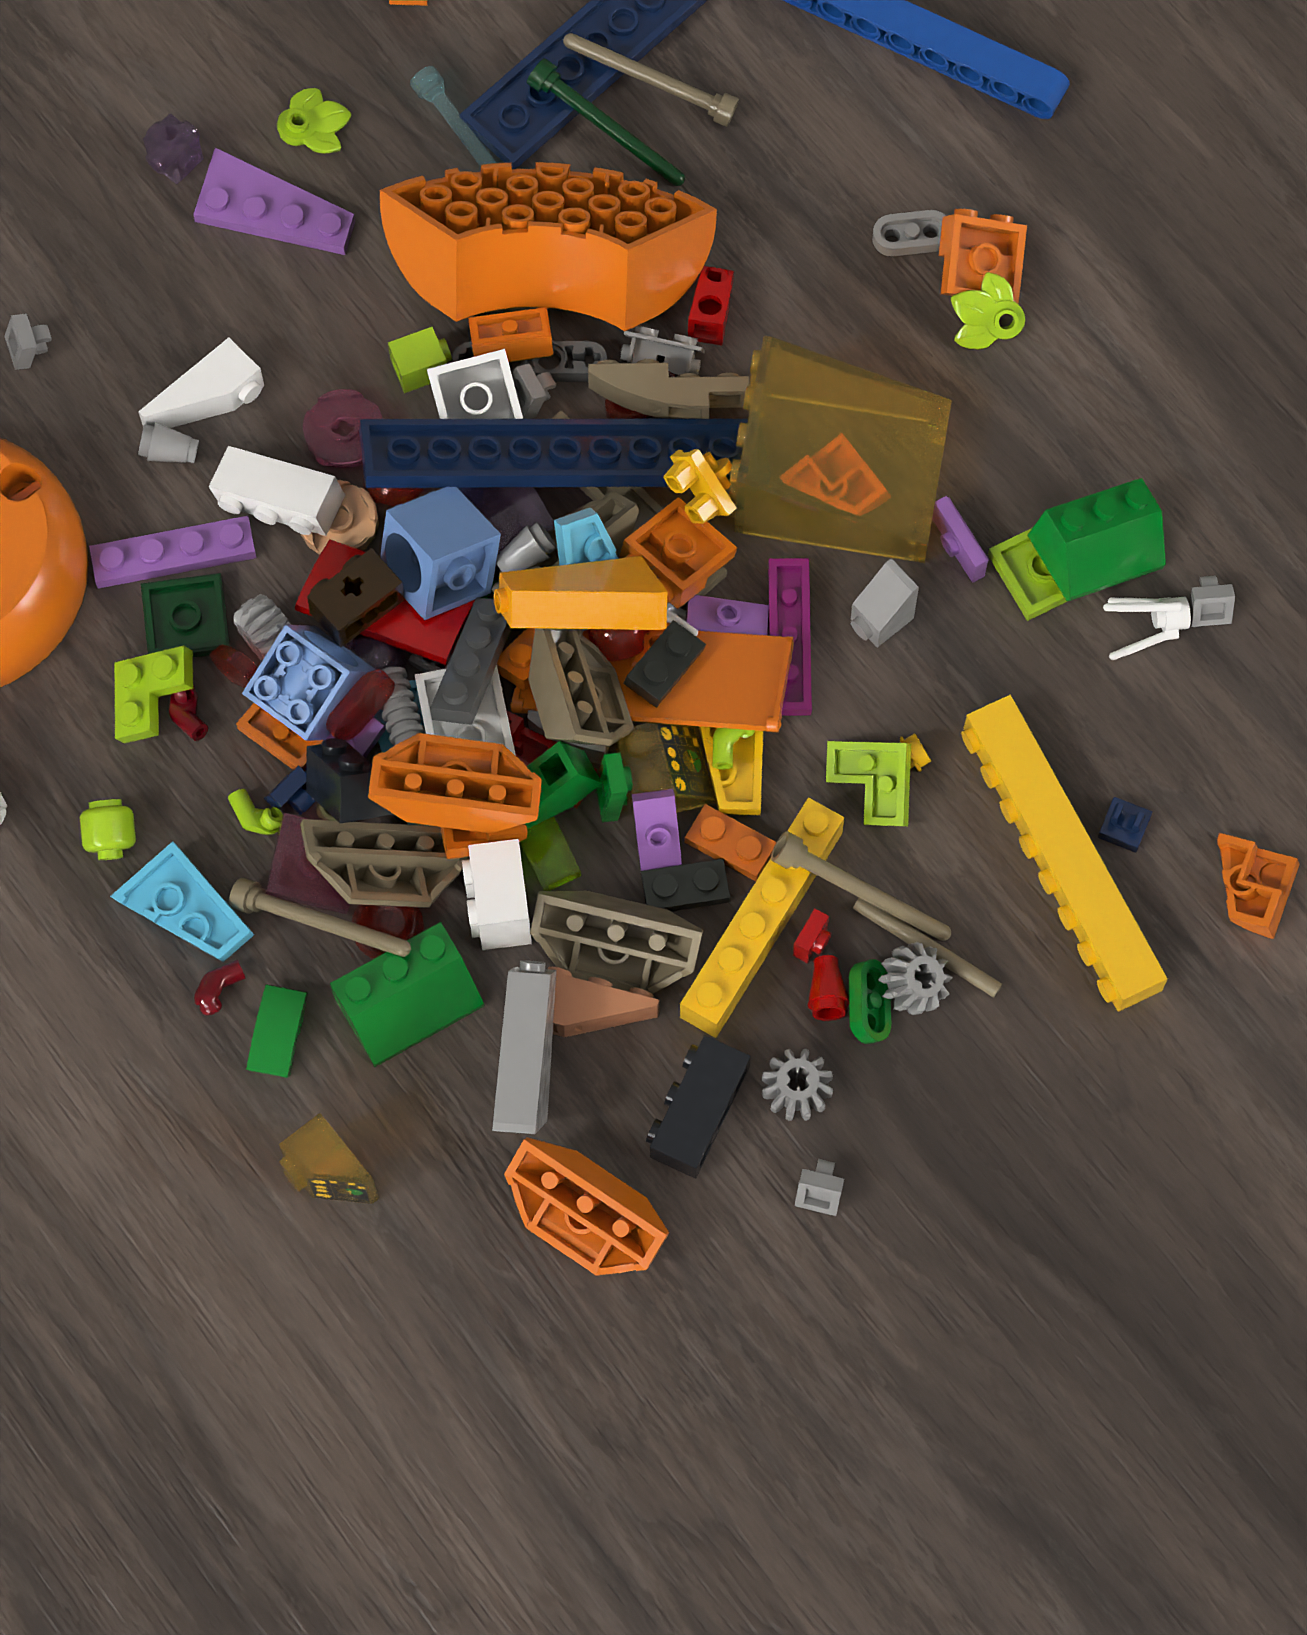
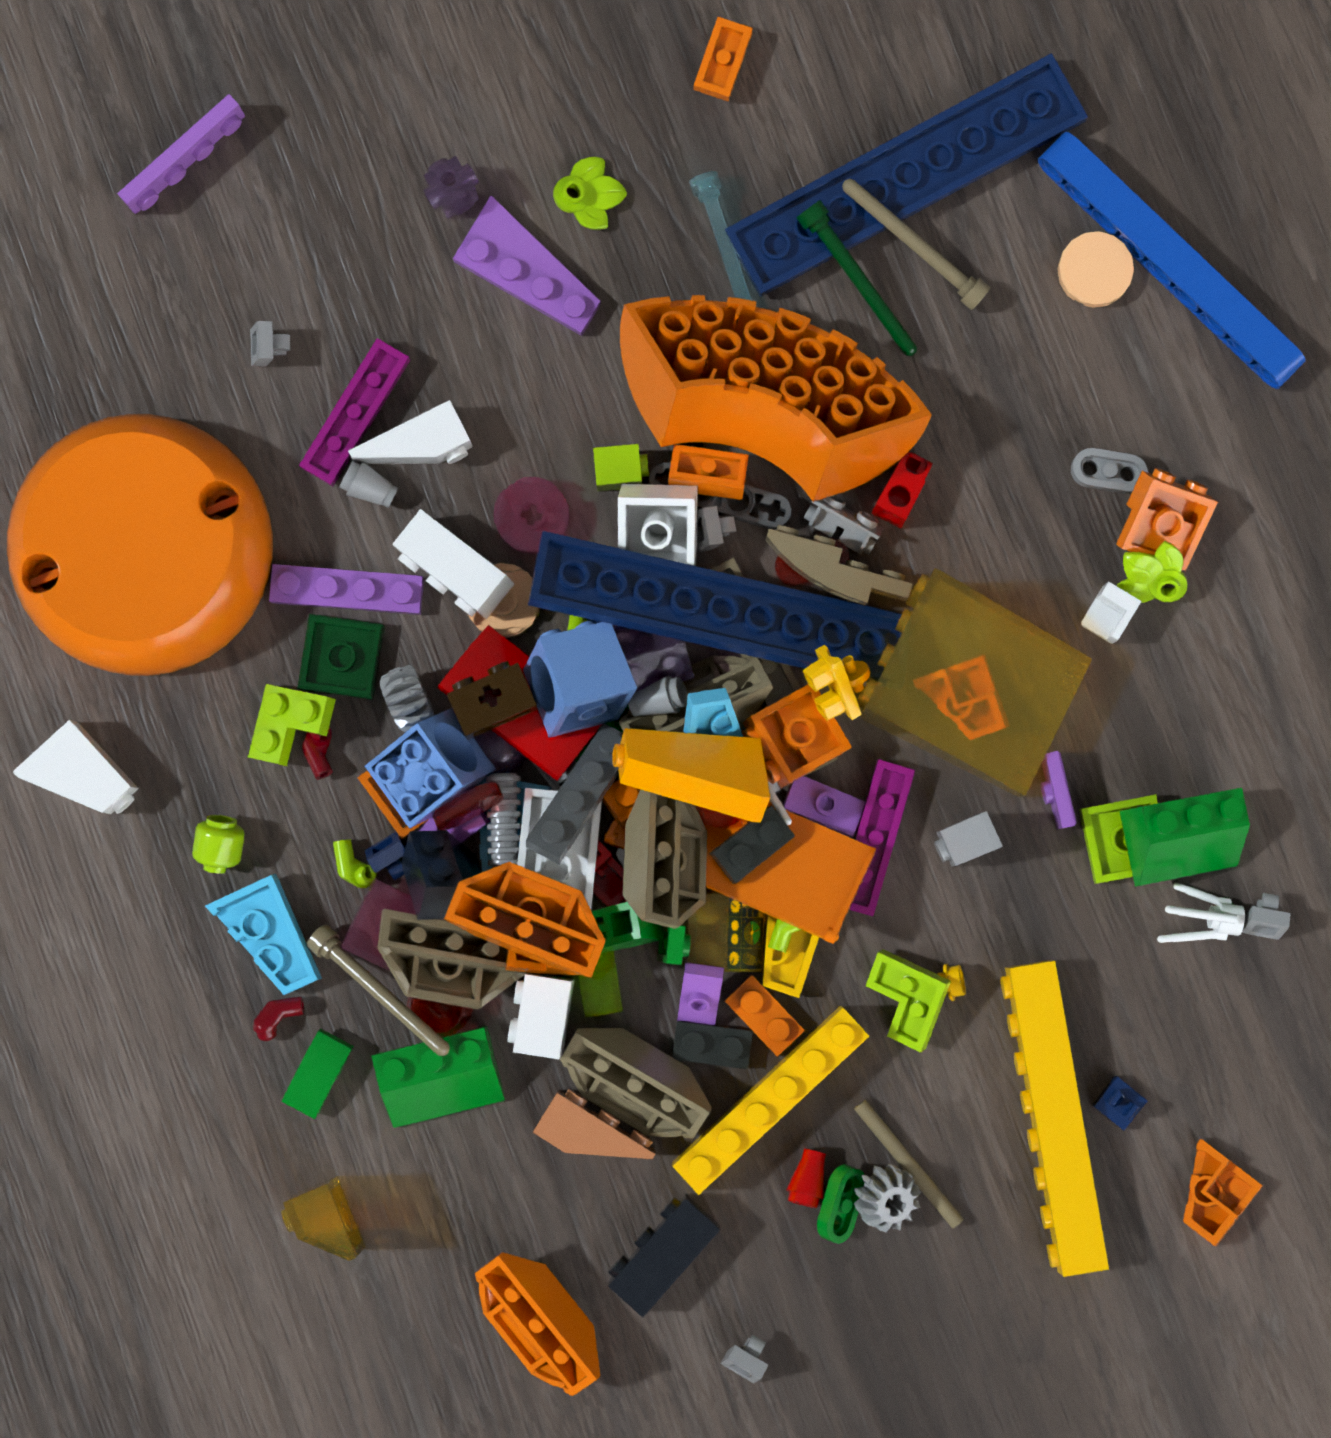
camera: 20 degrees right, 15 degrees up
(133, 381) = (354, 412): none -> magenta plate
(233, 664) = (370, 725): clear red tile -> none
(525, 1049) = (522, 1175): light grey slope -> none
(791, 852) = (810, 1063): dark tan piece -> none
(798, 1100) = (768, 1262): light grey gear -> none
(812, 937) = (809, 1130): red plate -> none
(837, 59) = (1095, 269): none -> light nougat tile
(956, 360) = (1110, 612): none -> white panel

